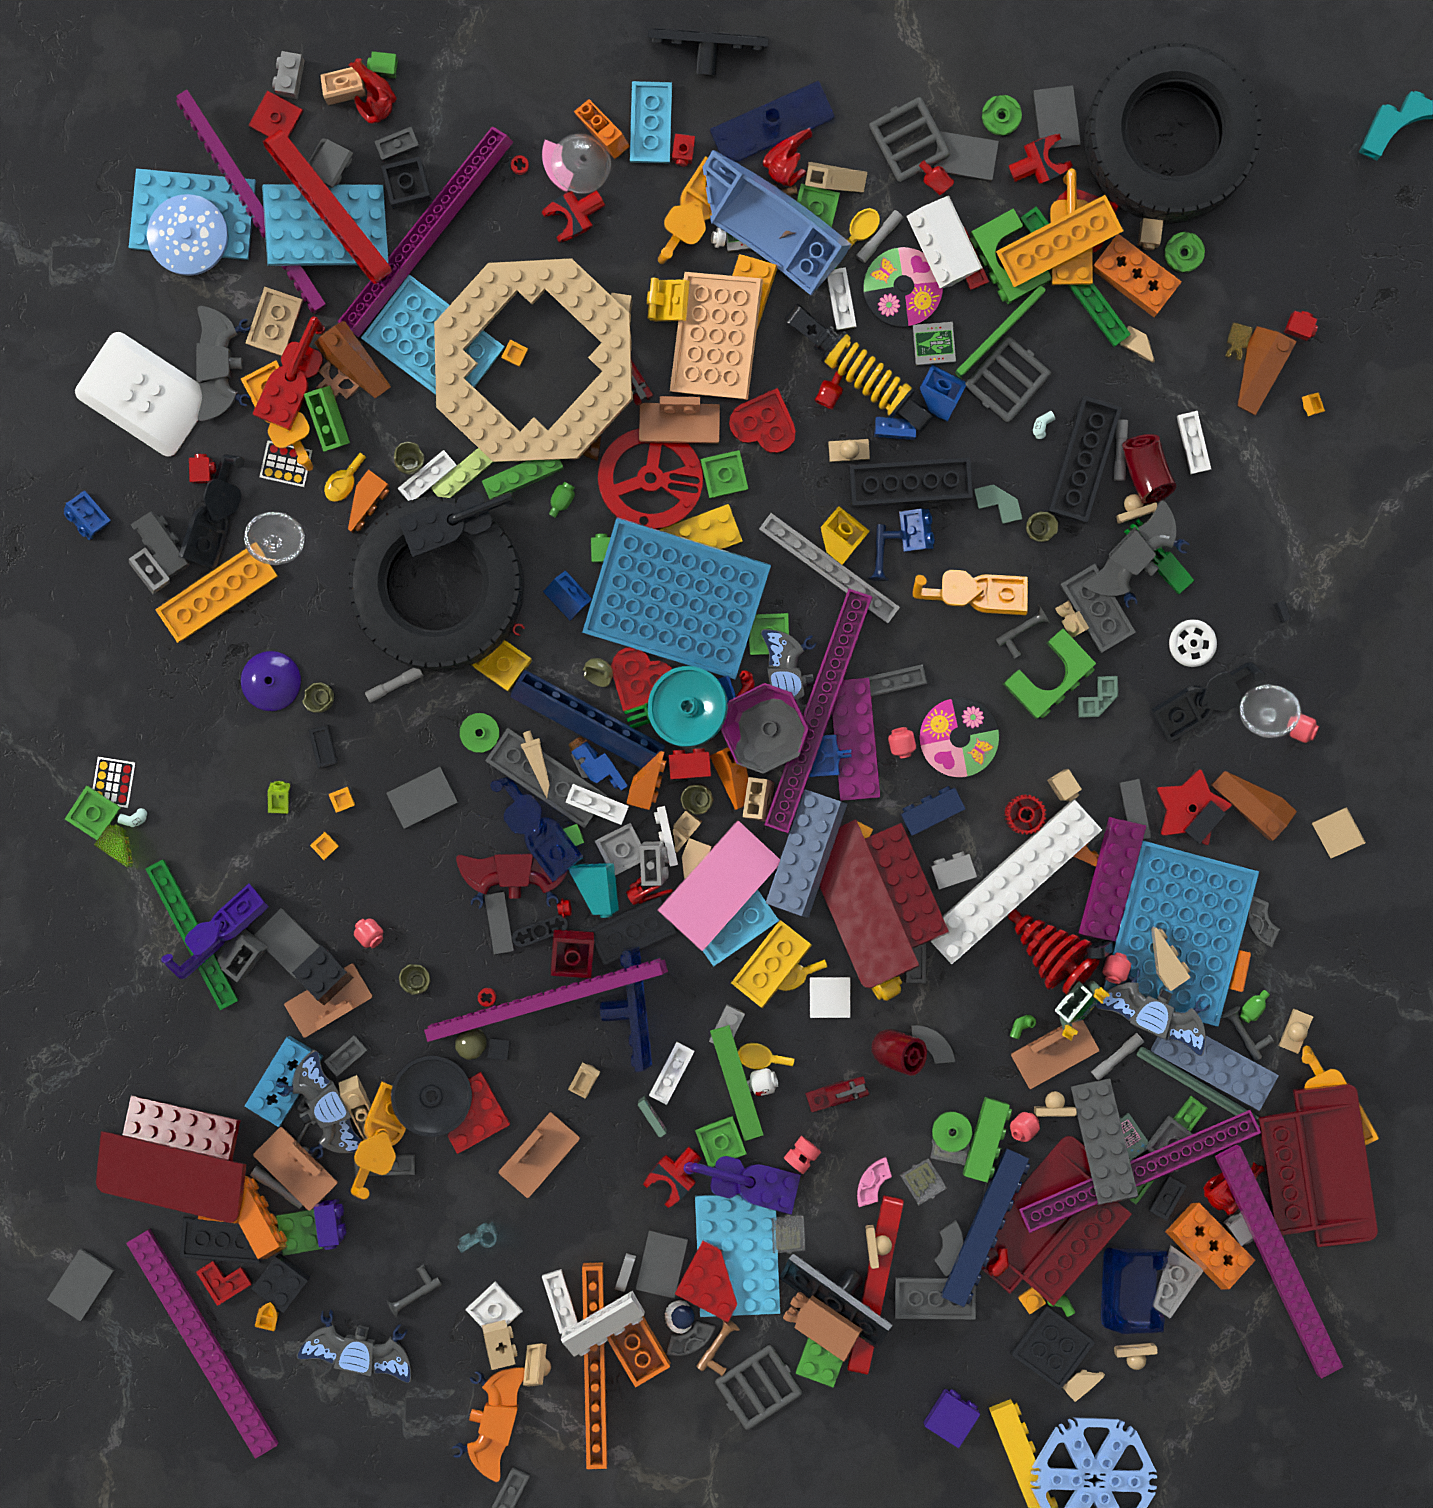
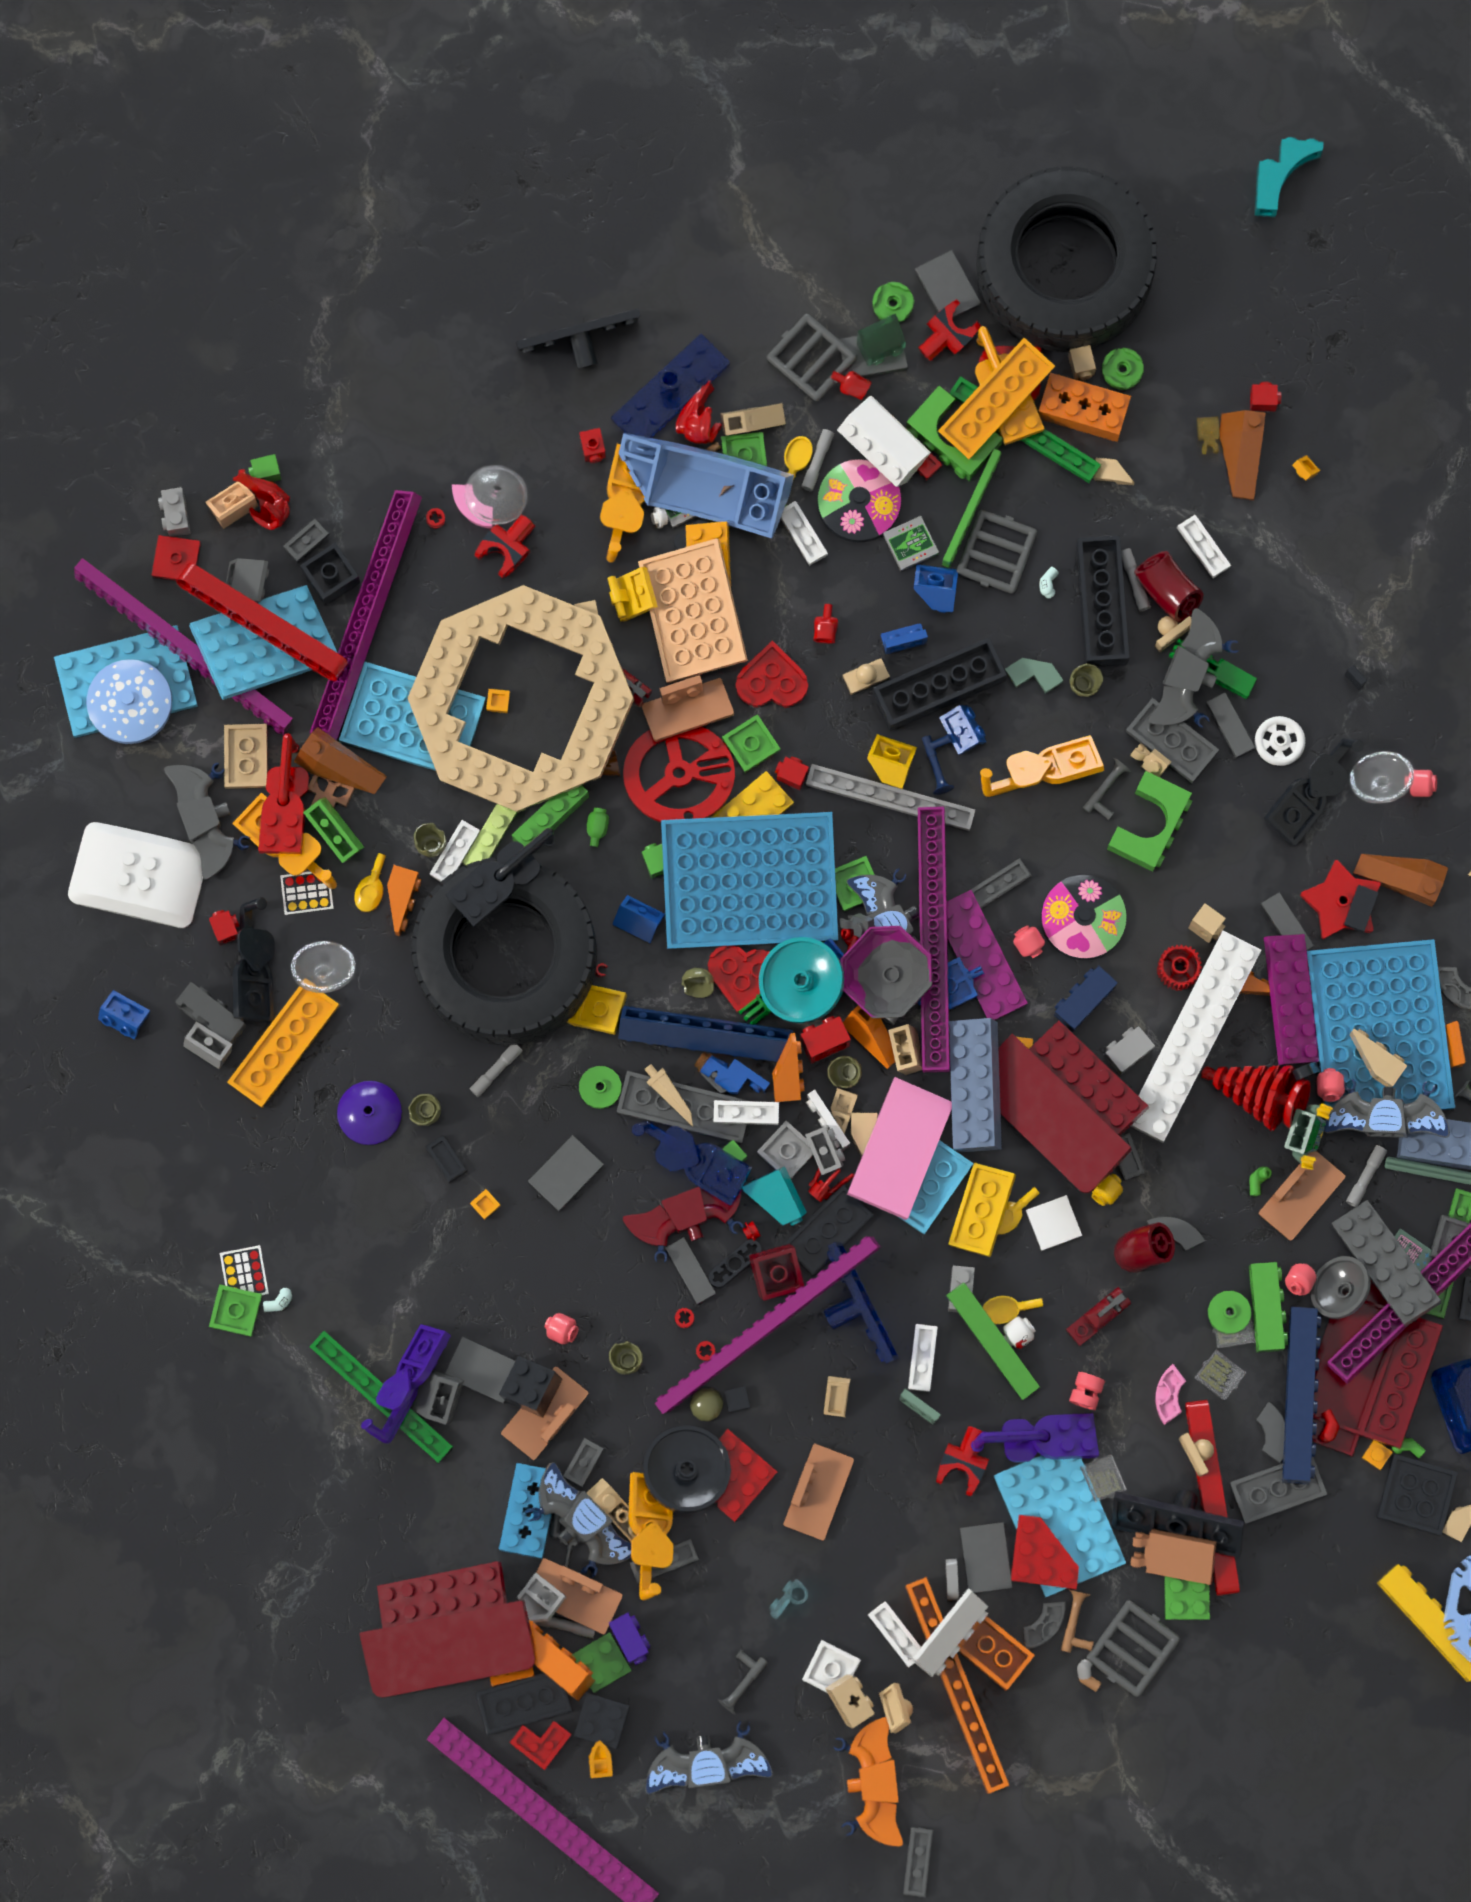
camera: 20 degrees left, 10 degrees down
(80, 1284) = (393, 1802): dark grey tile -> none
(116, 844) = (270, 1333): clear neon green slope -> none
(264, 1162) = (541, 1599): none -> light grey slope
(278, 797) = (420, 1225): lime bracket -> none
(324, 845) = (484, 1257): light orange plate -> none
(473, 959) = (691, 1317): none -> red bush
(602, 128) = (505, 454): orange slope -> none
(650, 122) = (550, 431): medium azure plate -> none
(679, 1316) = (1024, 1605): hair -> none
(708, 1396) = (1085, 1676): none -> arm
(720, 1140) = (998, 1406): bright green plate -> none
(750, 513) = (792, 772): none -> red brick
(758, 671) = (858, 922): none -> dark grey plate
(839, 352) = (820, 583): piece -> none
(952, 1417) = (1342, 1603): dark purple brick -> none
(976, 148) = (881, 340): none -> clear green slope
(1051, 1139) = (1333, 1283): none -> dark grey dish
(1054, 1106) = (1323, 1248): tan tile -> none
(1106, 693) = (1214, 821): sand green tile -> none
(1154, 613) = (1230, 725): none -> dark grey tile

